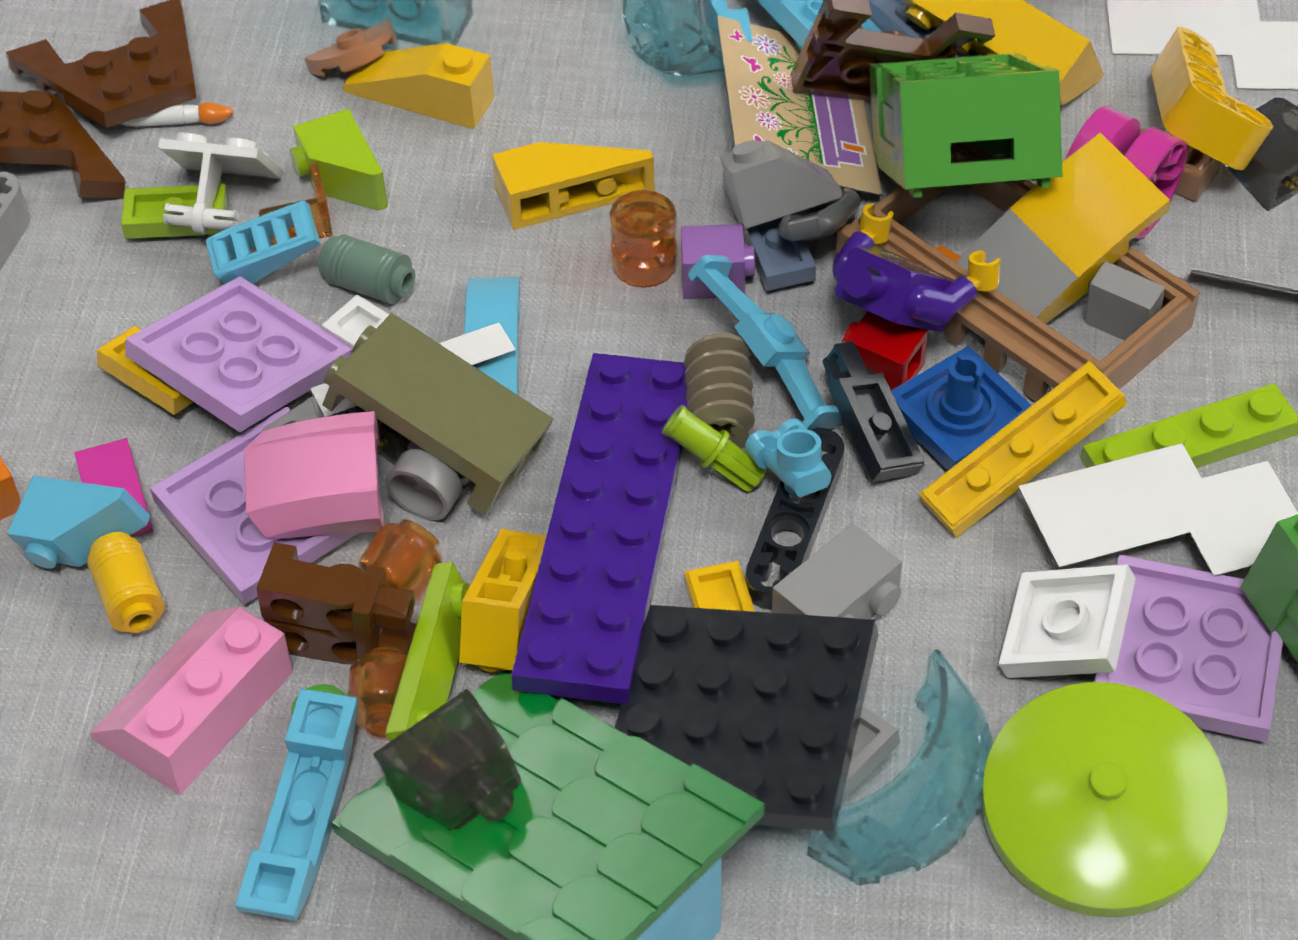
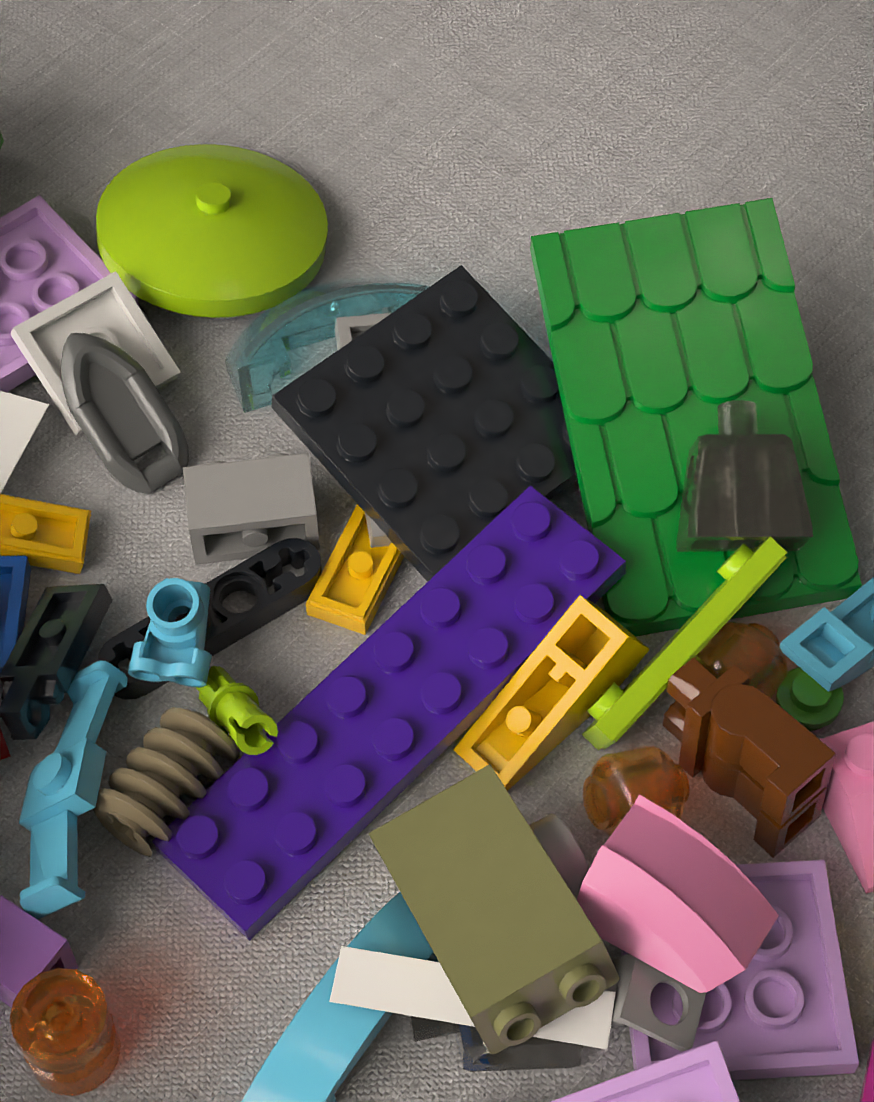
camera: 145 degrees left, 5 degrees up
(998, 591) = (121, 412): none -> dark grey piece

